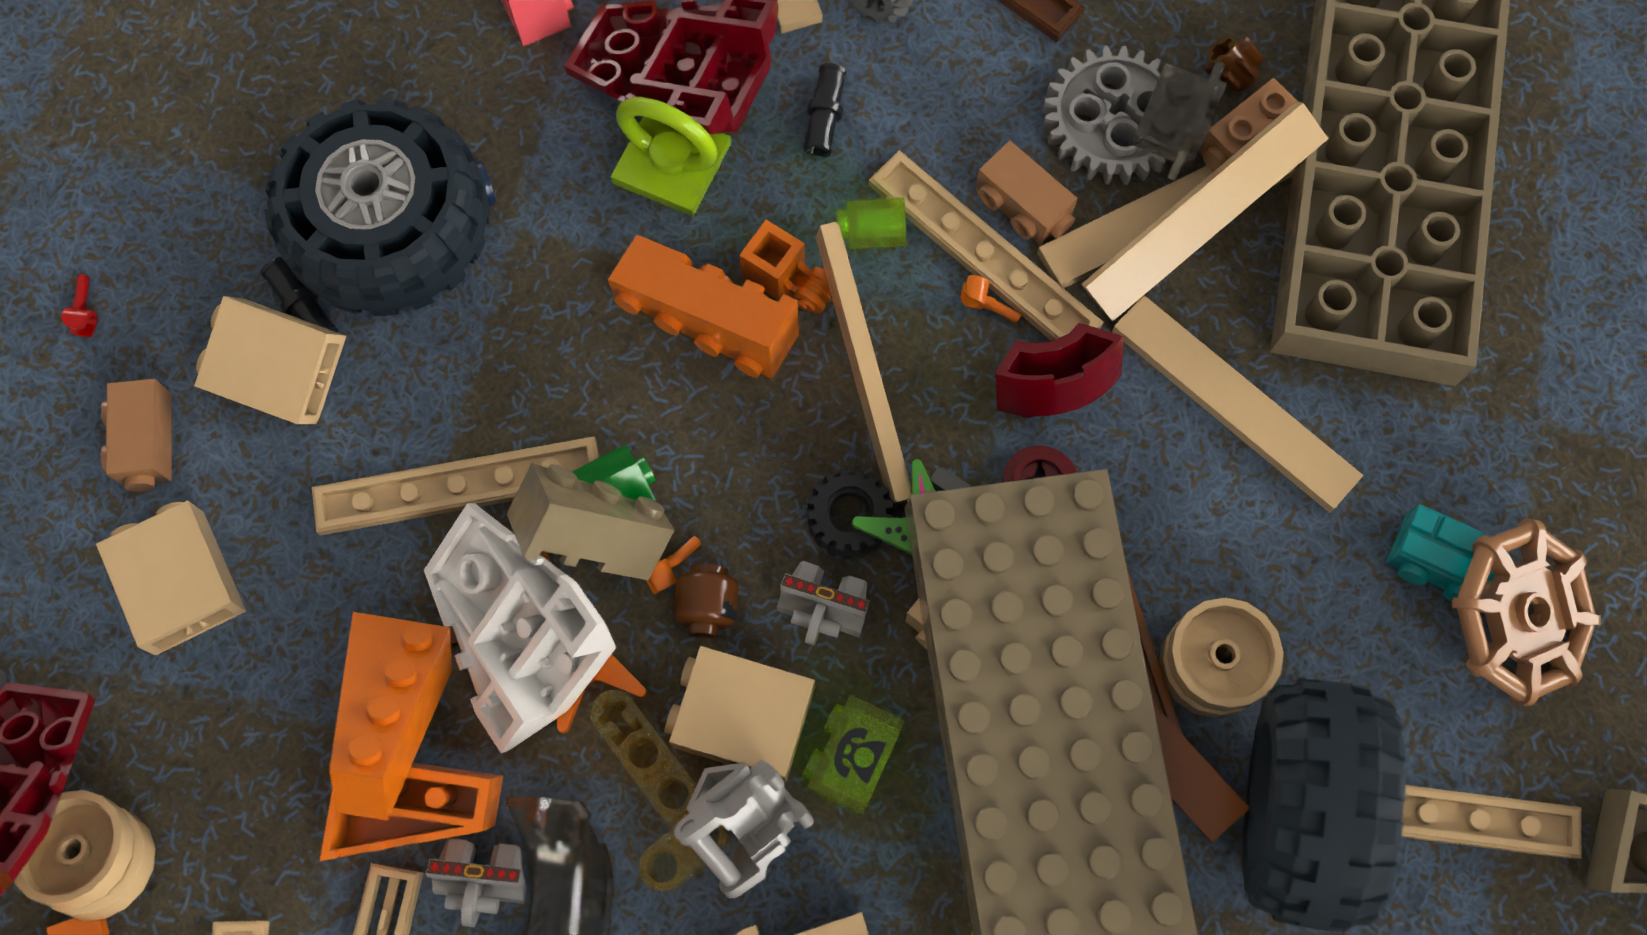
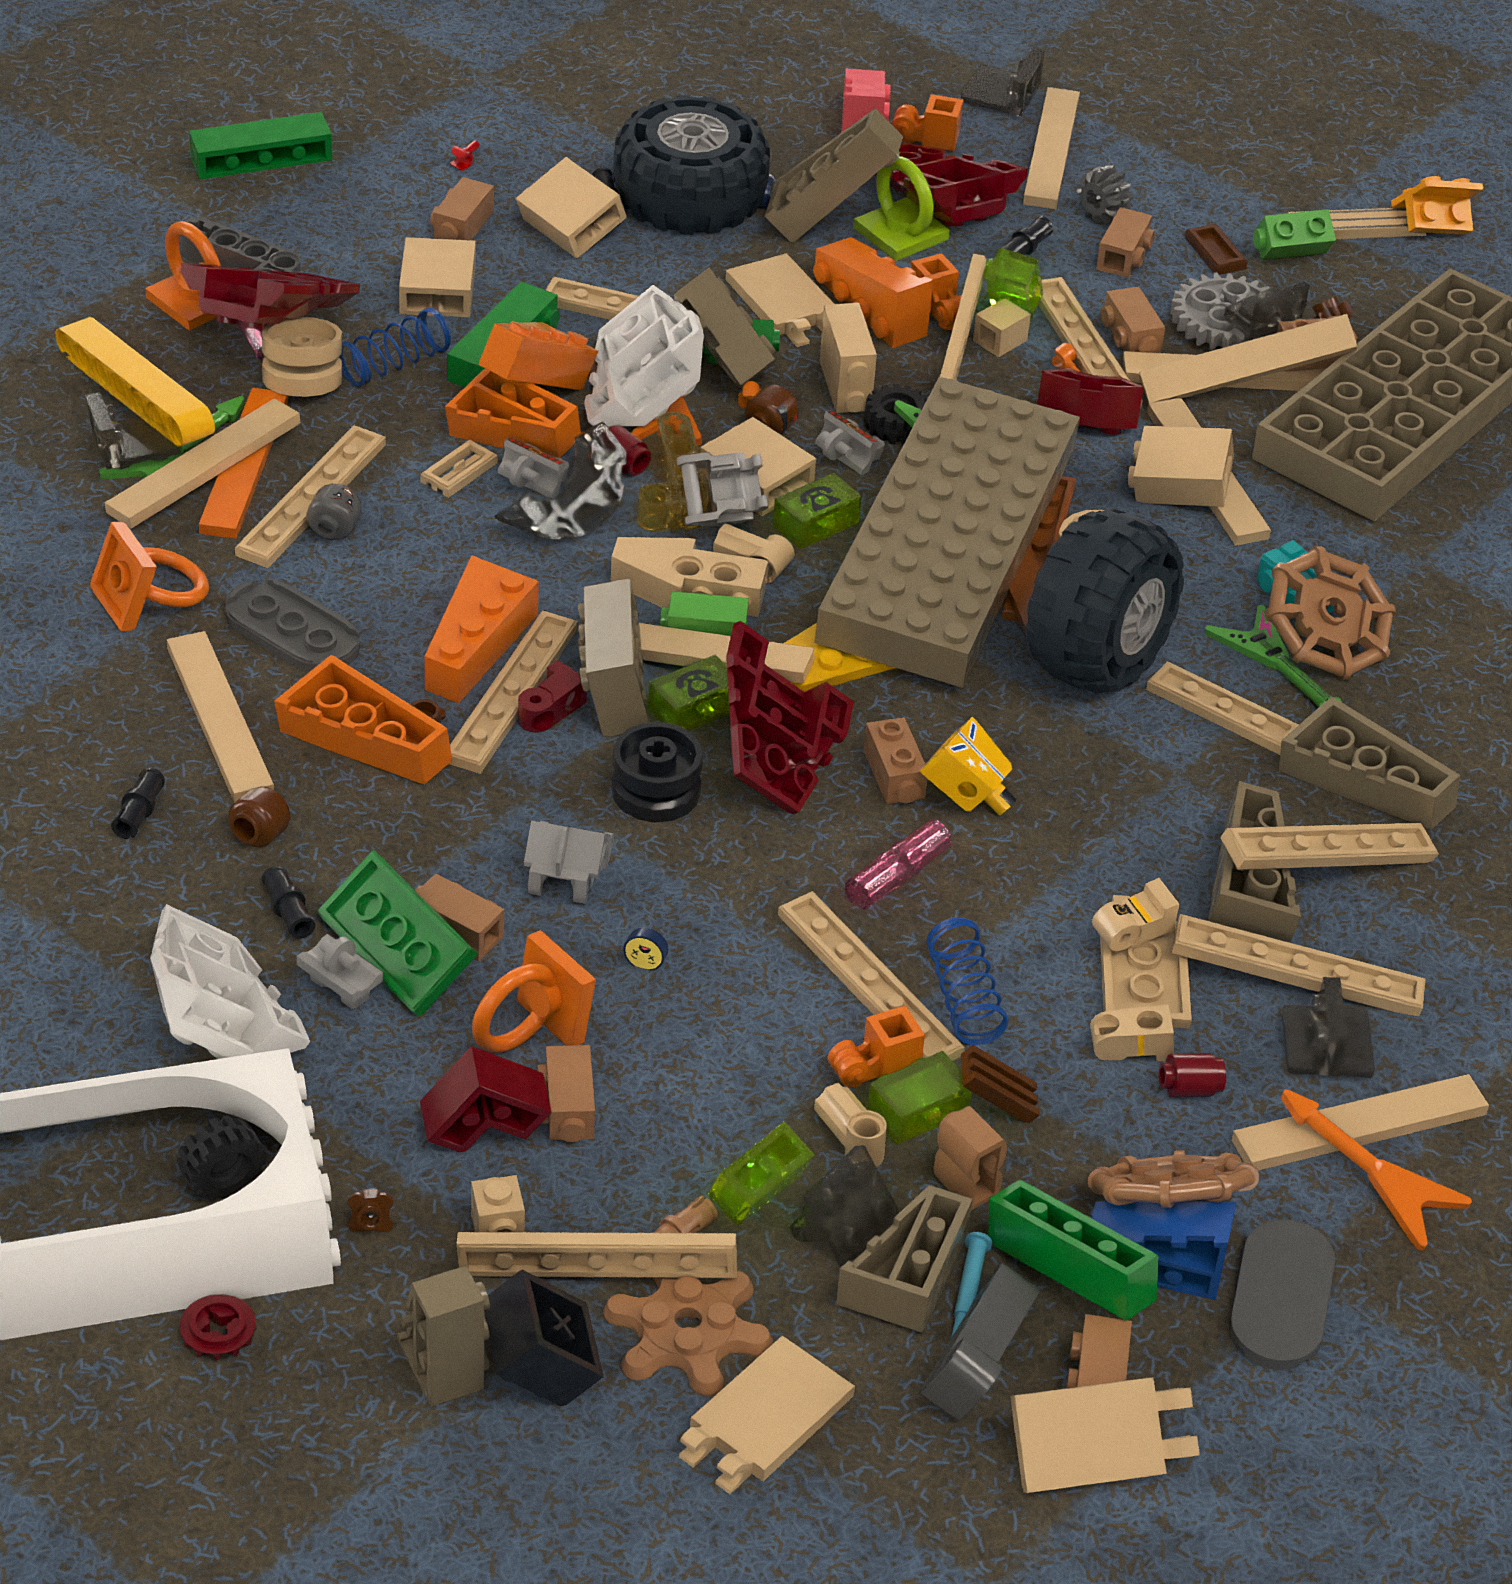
camera: 25 degrees right, 30 degrees down
(153, 817) = (363, 364): none -> blue piece
(311, 647) = (520, 305): none -> green brick
(568, 156) = (832, 174): none -> dark tan wedge
(568, 776) = (637, 452): none -> dark red brick
(604, 364) = (781, 293): none -> tan tile
(753, 467) = (847, 356): none -> tan brick
(830, 876) = (741, 543): none -> tan piece
(886, 285) = (1001, 327): none -> tan brick
(940, 52) = (1125, 242): none -> medium nougat brick
(1224, 434) = (1182, 466): none -> tan brick
(1453, 684) = (1268, 649): none -> bright green piece

